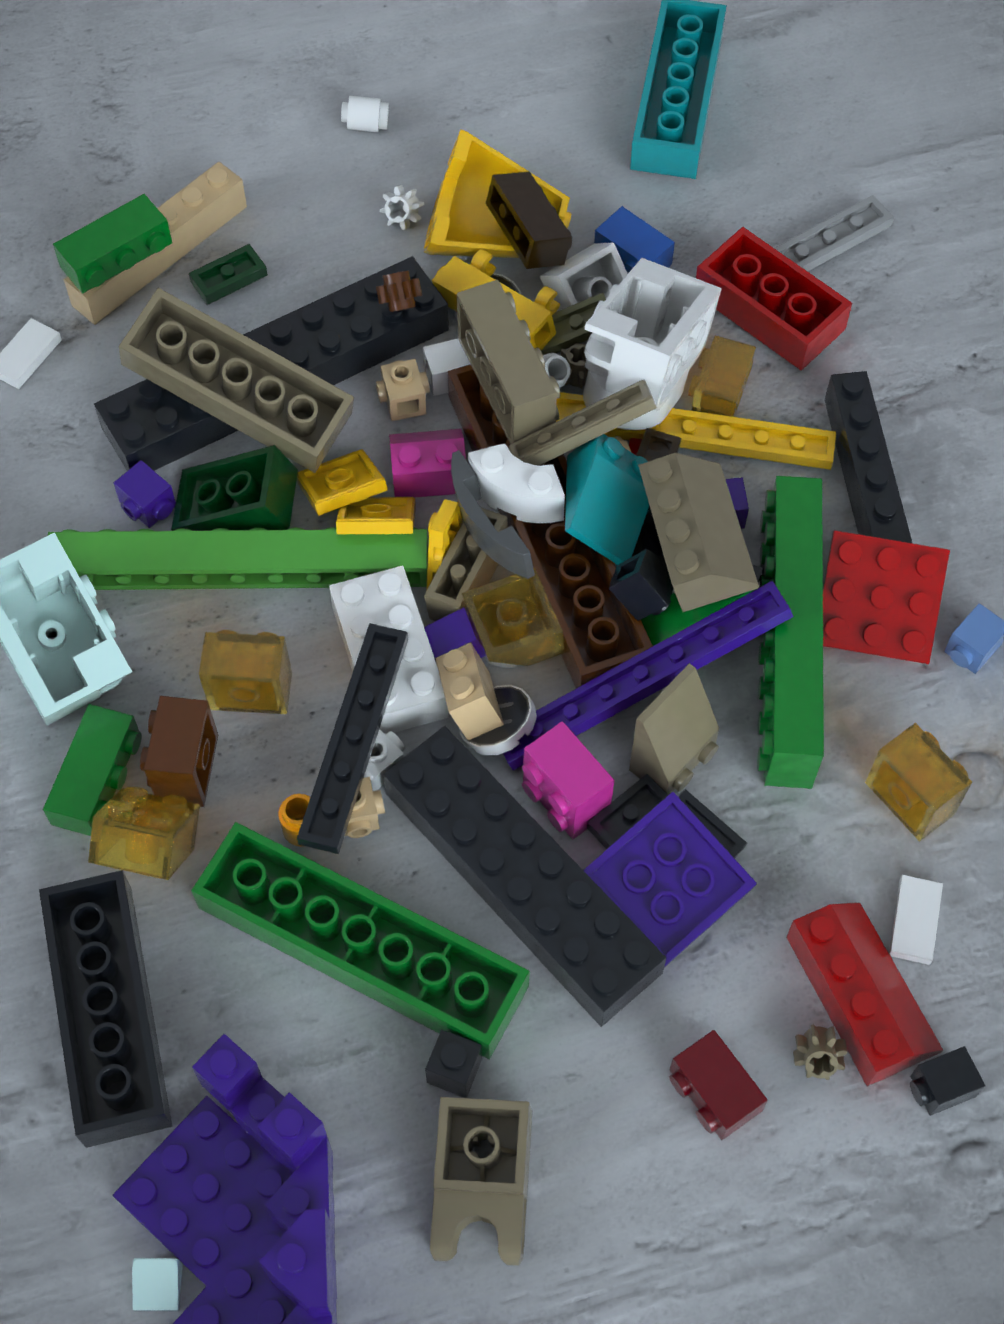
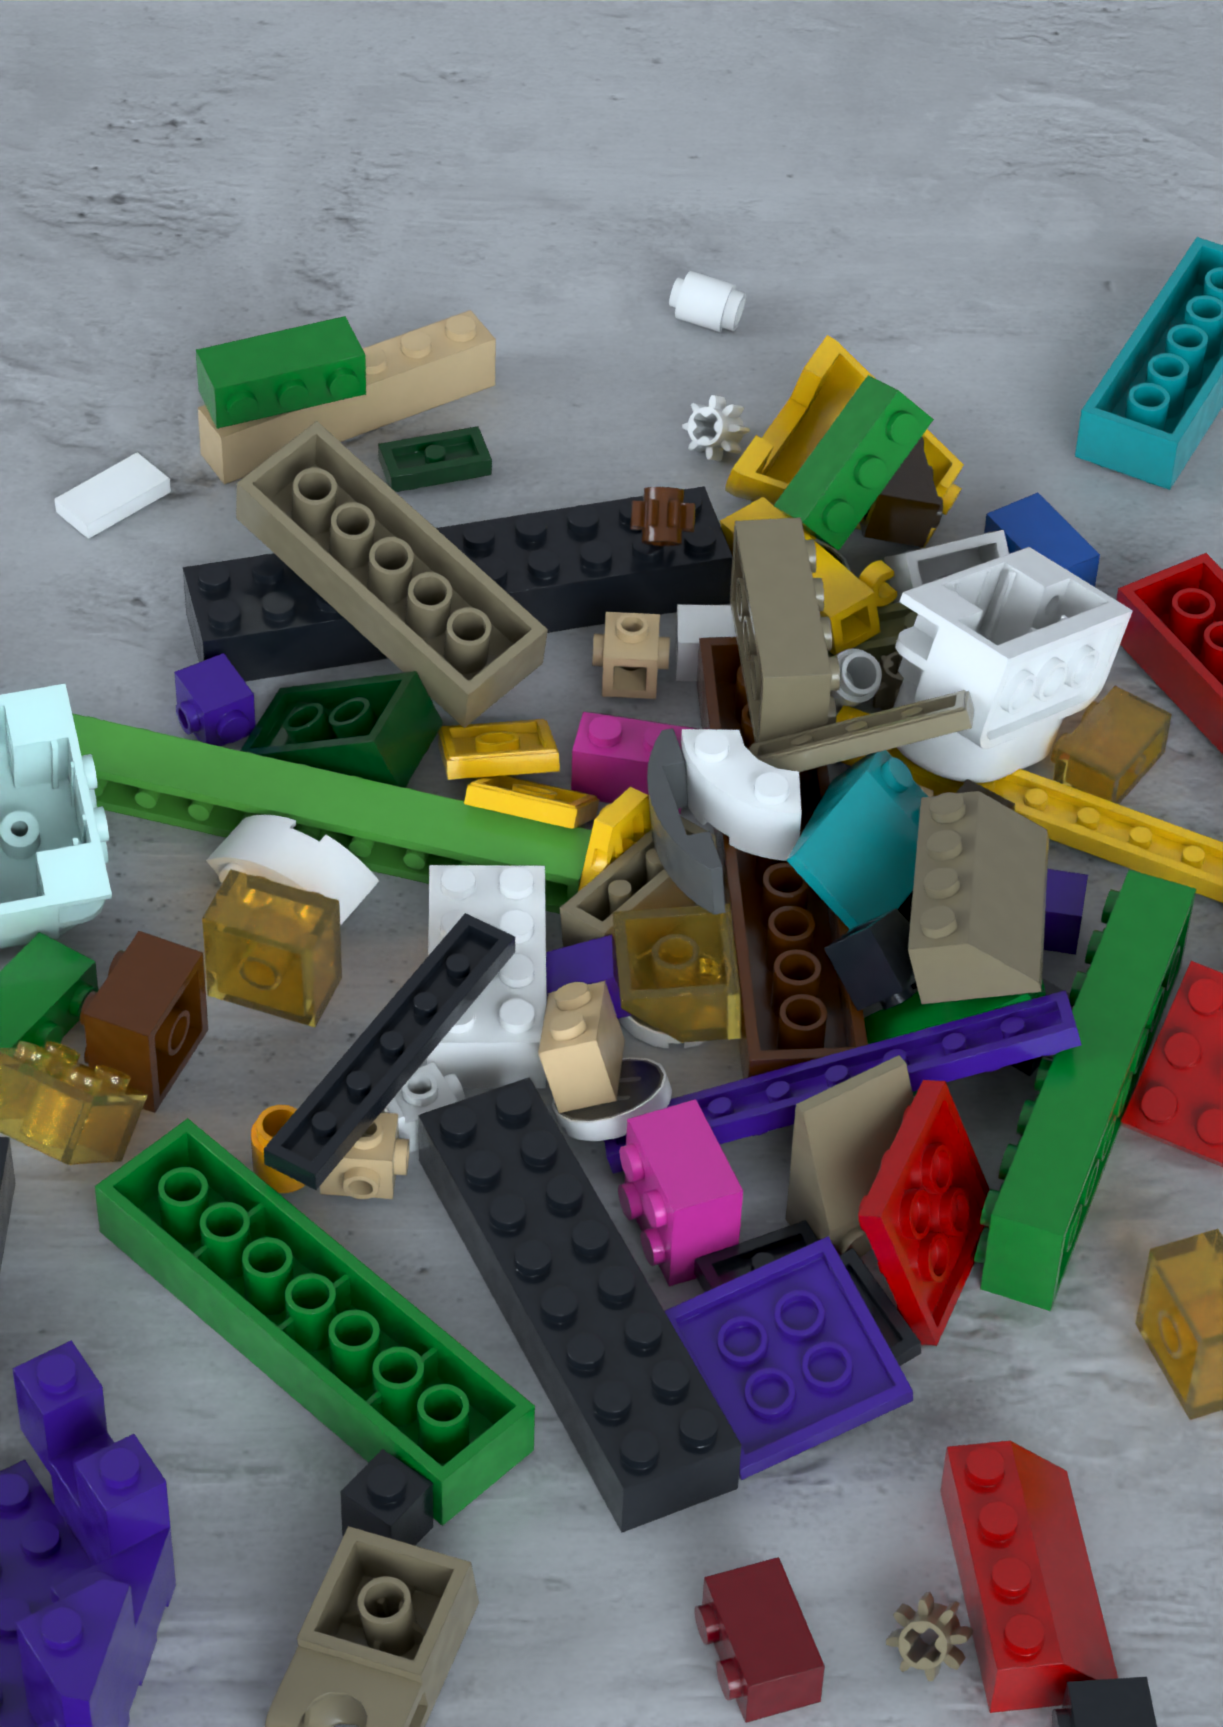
camera: 15 degrees right, 15 degrees down
(220, 605) = (278, 852): none -> white brick
(511, 222) = (854, 462): none -> green brick
(728, 755) = (926, 1211): none -> red plate
(916, 919) = (1143, 1514): white tile -> none

